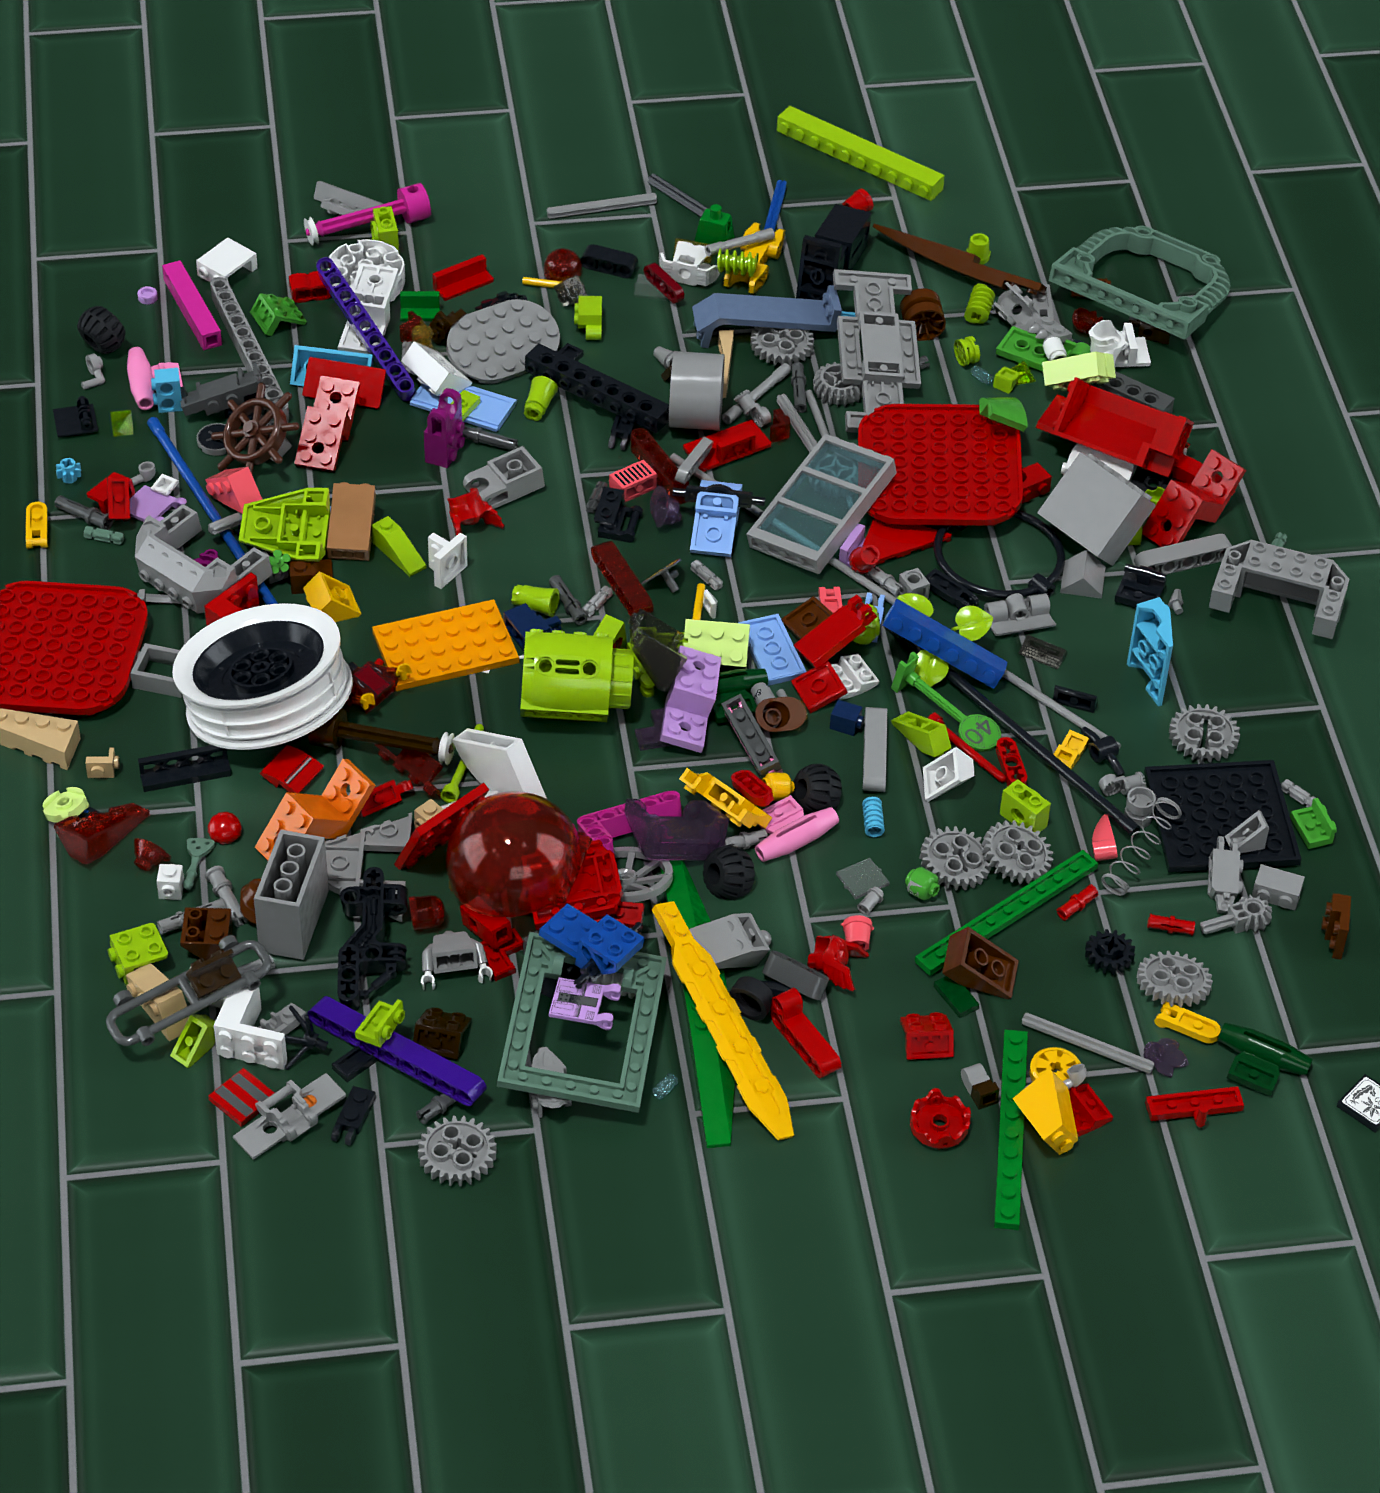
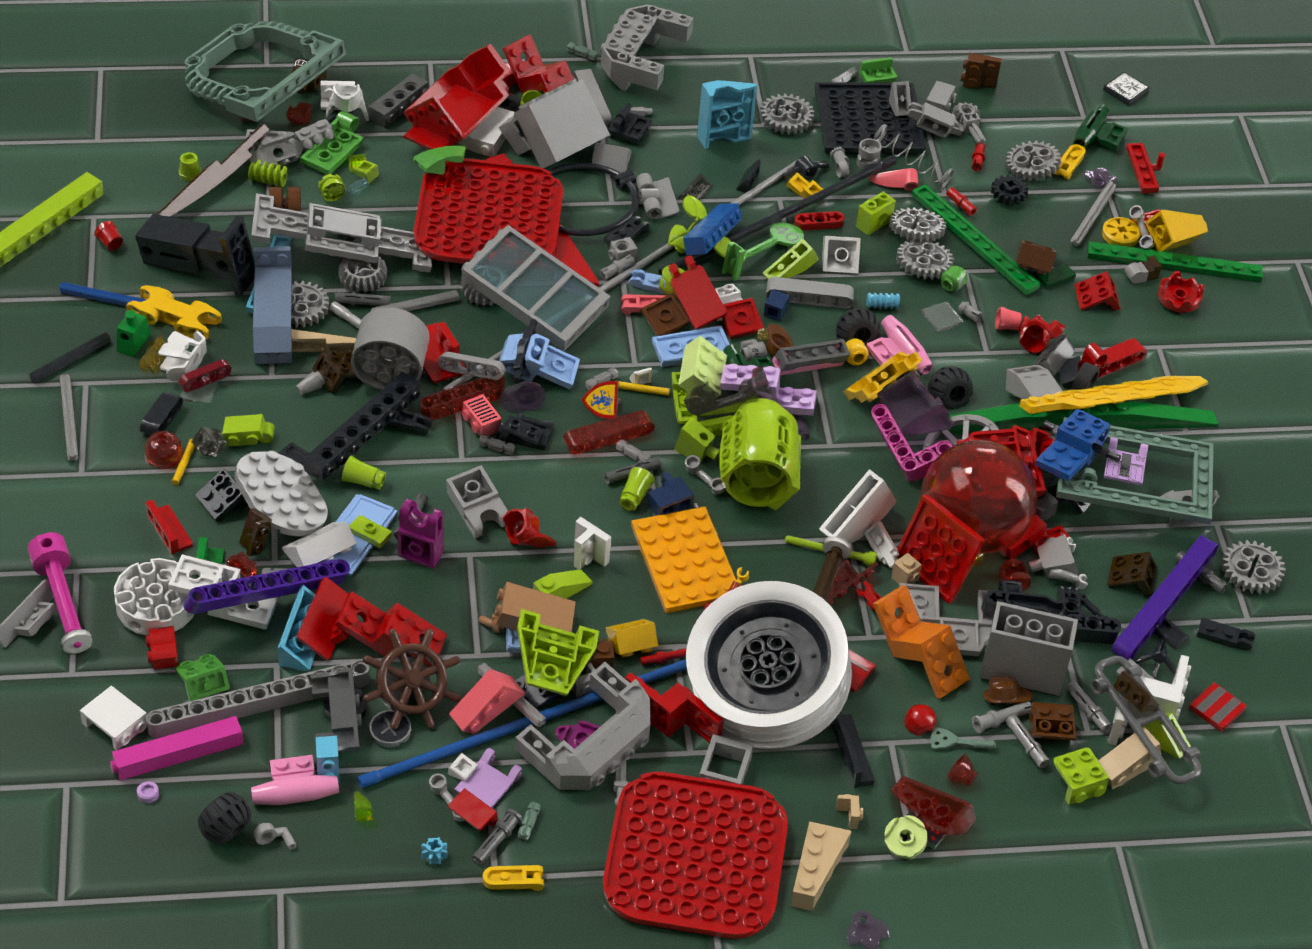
camera: 90 degrees left, 0 degrees up
(75, 419) = (349, 850): black hinge -> none
(118, 498) = (497, 793): red panel -> none
(170, 881) = (993, 754): white brick -> none
(279, 561) = (594, 662): bright green plant -> none
(294, 1120) = (1236, 672): light grey piece -> none
(380, 1023) = (1155, 594): lime bracket -> none
(384, 226) = (89, 579): lime brick -> none
(422, 334) = (275, 551): clear yellow hinge -> none
(737, 263) = (202, 312): lime piece -> none
(752, 788) = (868, 357): red plate -> none
(757, 237) = (176, 320): light grey piece -> none
(781, 426) = (419, 311): clear red bracket -> none
(816, 413) = (407, 292): light grey bar -> none
(864, 558) = (599, 270): red piece -> none
(997, 774) = (775, 255): red piece -> none
(1054, 349) = (347, 131): white brick -> none
(1088, 367) = (385, 114): yellowish green piece -> none

